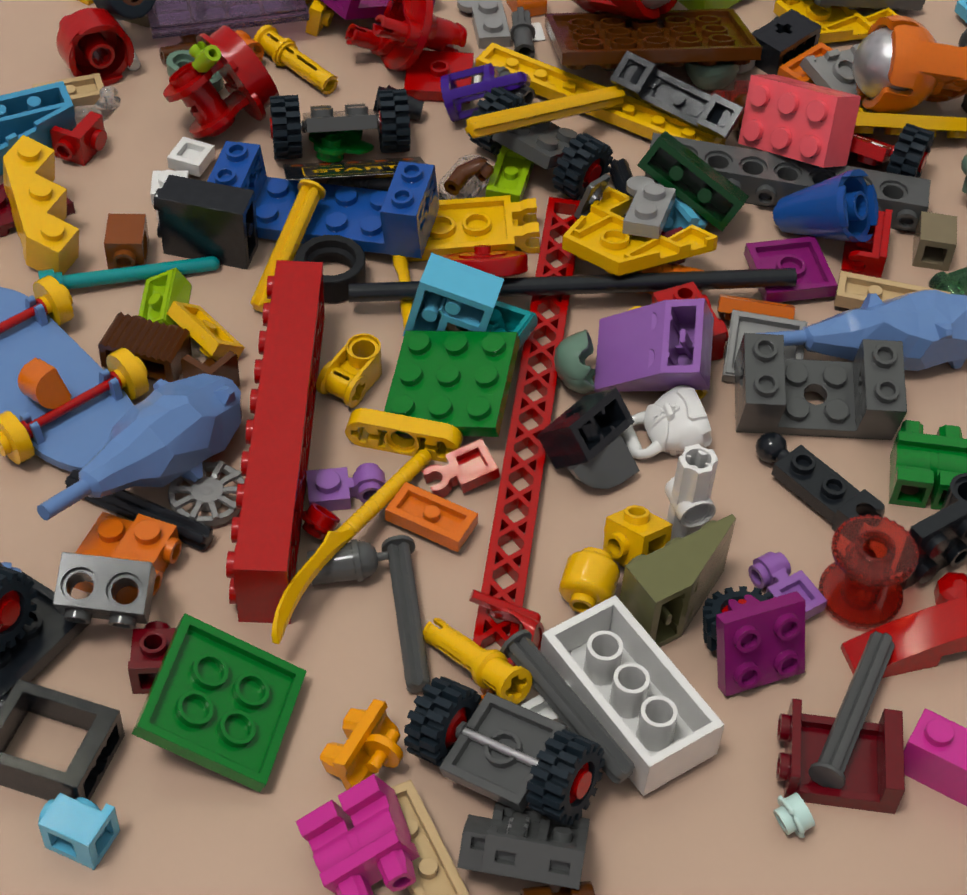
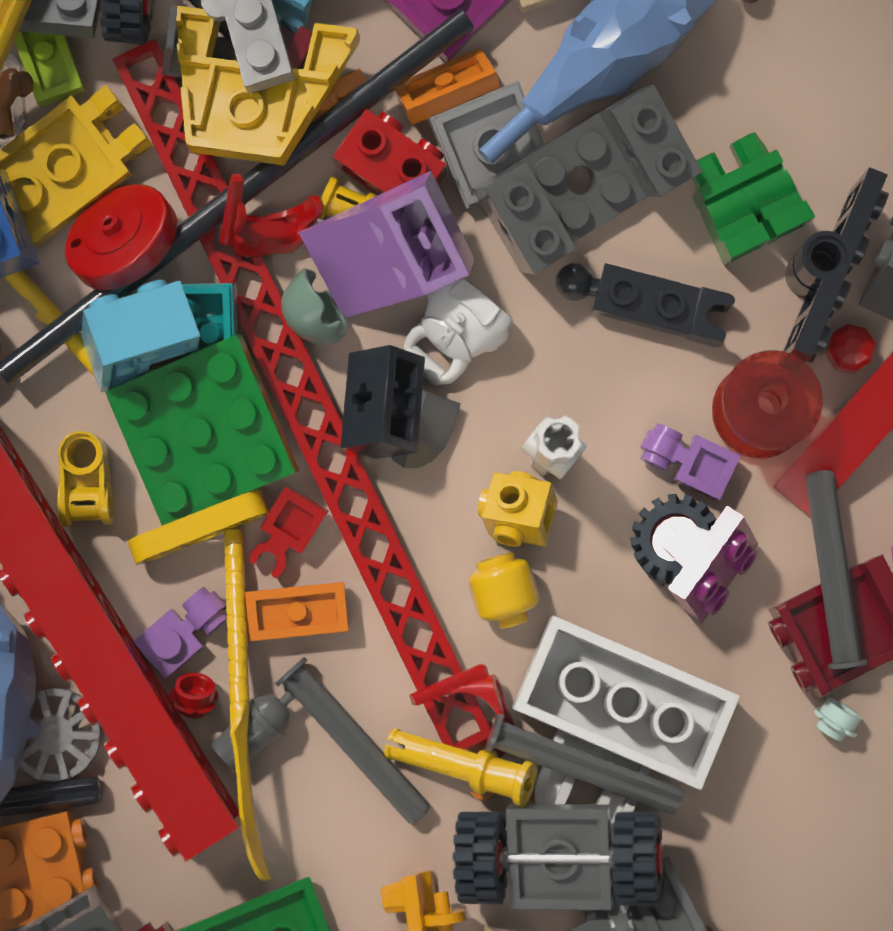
camera: 35 degrees left, 35 degrees up
(563, 307) = (265, 233): none -> red helmet
(674, 581) = (597, 556): olive slope -> none

